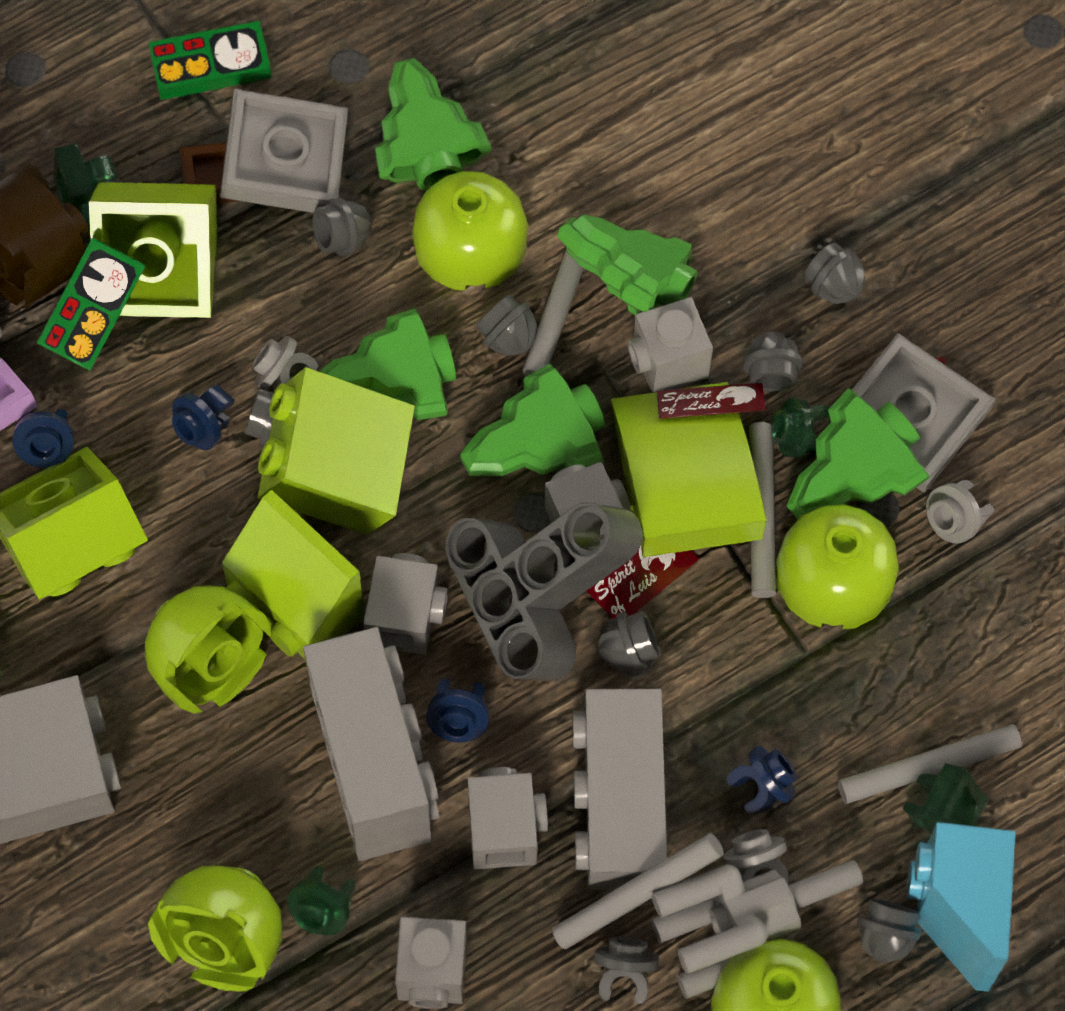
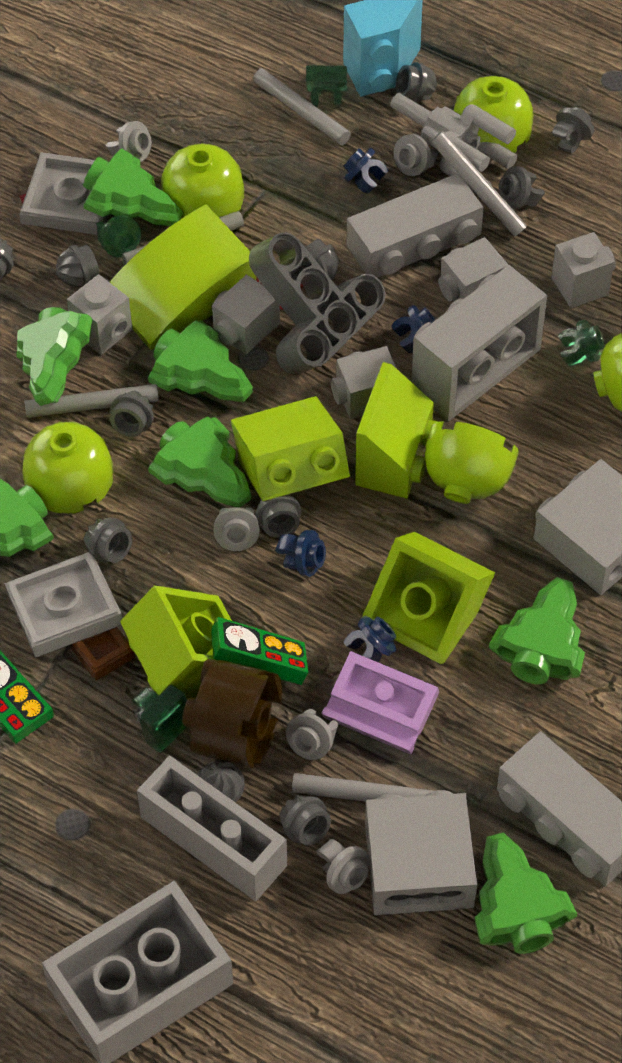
camera: 115 degrees left, 10 degrees down
(711, 400) = (127, 276): dark red sticker -> none

